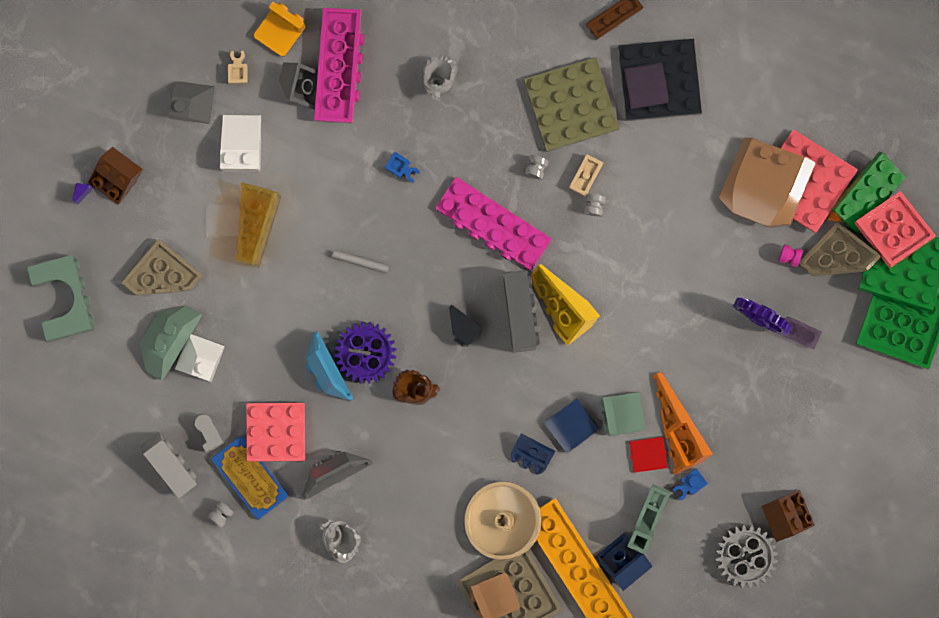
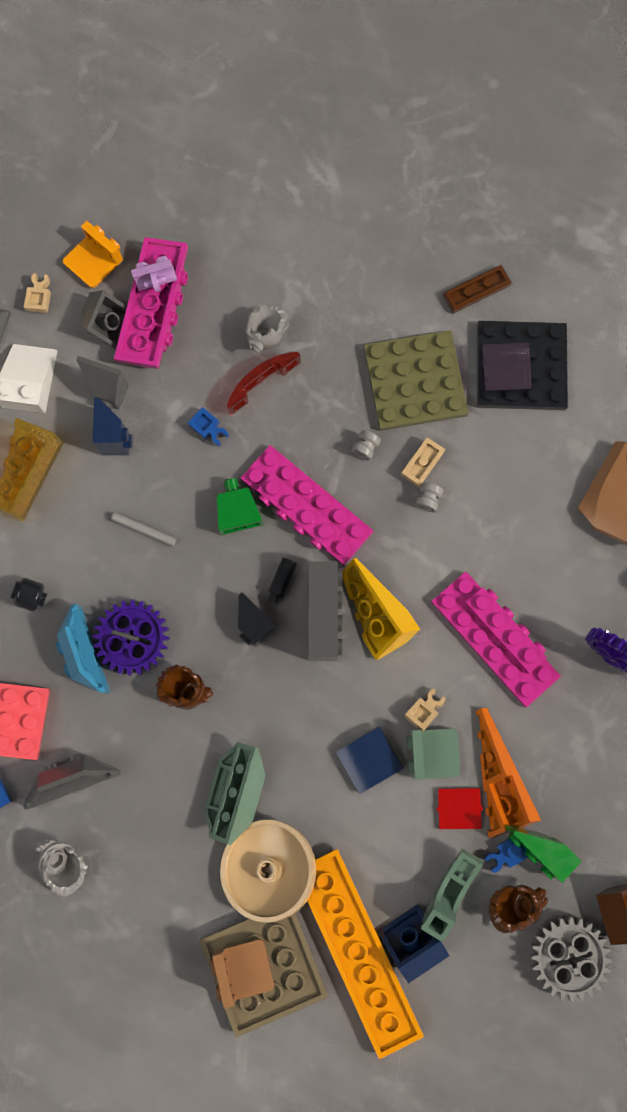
camera: 15 degrees right, 5 degrees down
(275, 328) = (28, 594): none -> black head
(310, 142) = (105, 382): none -> dark grey slope
(322, 183) = (109, 432): none -> dark blue slope
(339, 44) = (154, 275): none -> lavender hips
(436, 235) = (236, 509): none -> green torso
(457, 104) = (282, 362): none -> clear red slope
(468, 464) = (234, 793): none -> sand green wedge
(481, 289) = (281, 579): none -> black cylinder
(532, 452) = (316, 788): dark blue plate -> none
(610, 382) = (423, 712): none -> tan plate
(663, 314) = (497, 638): none -> dark pink plate
(700, 523) = (516, 907): none -> reddish brown hair
(722, 478) = (551, 853): none -> green slope

